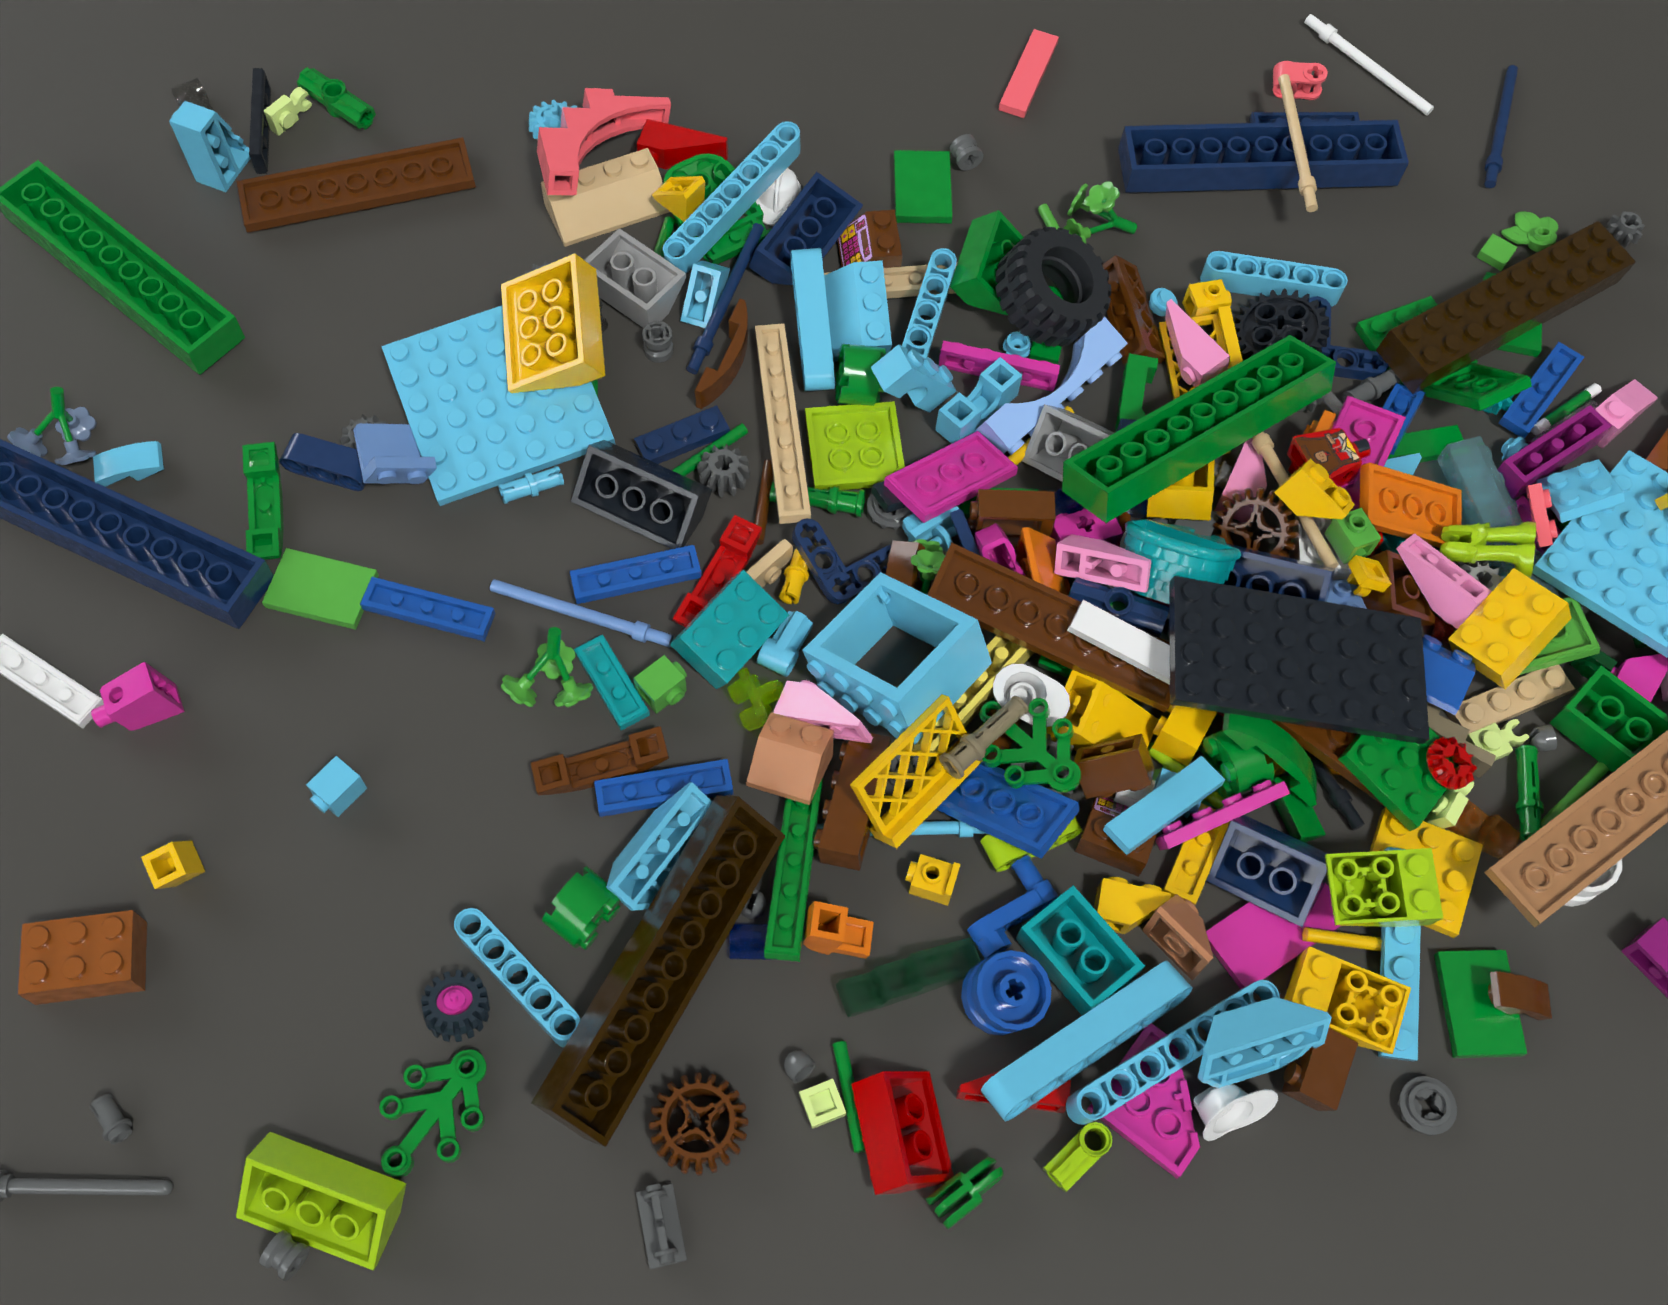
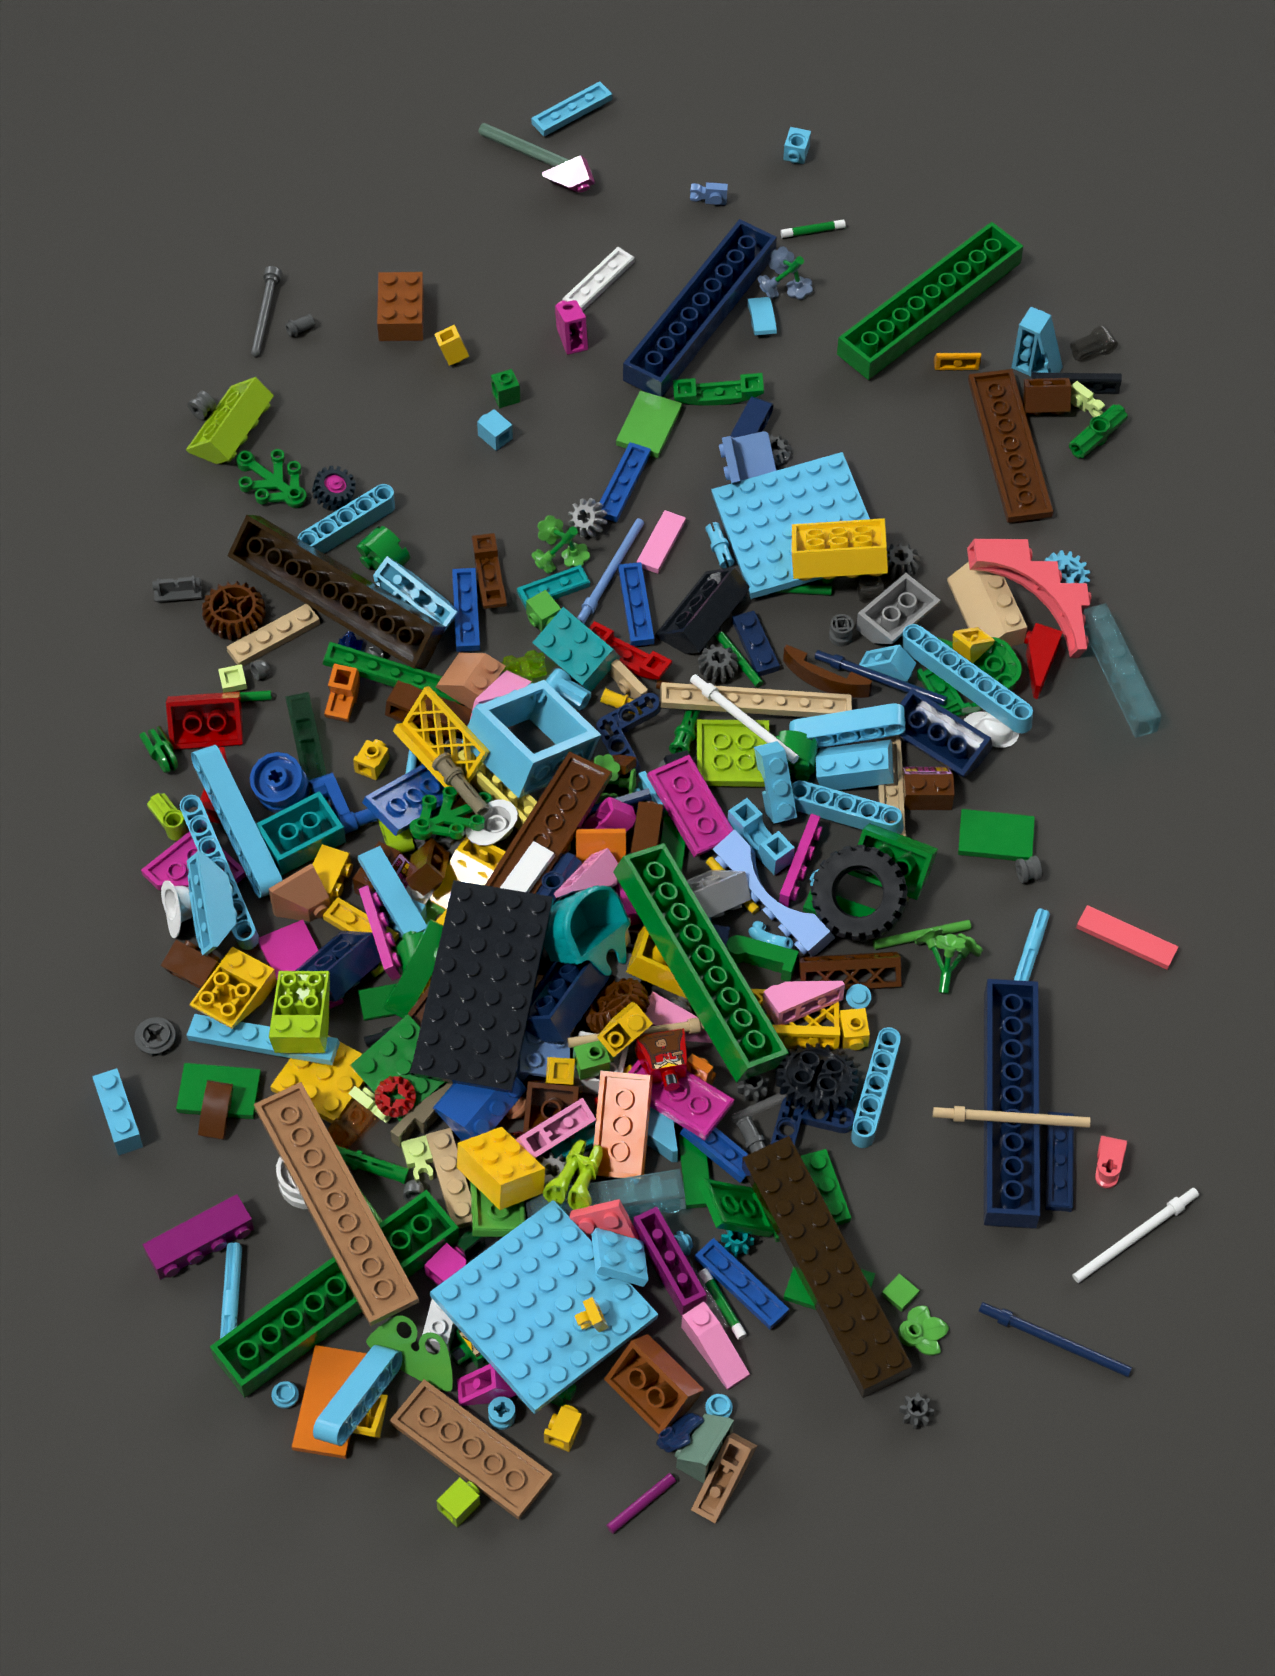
camera: 100 degrees right, 5 degrees down
(217, 242) = (957, 361): none -> light orange slope
(258, 779) = (505, 388): none -> green brick
(283, 140) = (1047, 395): none -> reddish brown brick
(512, 641) = (581, 511): none -> light grey gear
(526, 556) = (661, 541): none -> bright pink tile
(696, 69) = (1121, 671): none -> clear light blue brick
(733, 1060) = (273, 635): none -> tan plate
(791, 456) = (712, 693): none -> white bar
(1067, 152) = (1032, 945): none -> medium azure axle
(1108, 390) = (757, 932): none -> medium azure arm
(1562, 1131) = (117, 1111): none -> medium azure arch

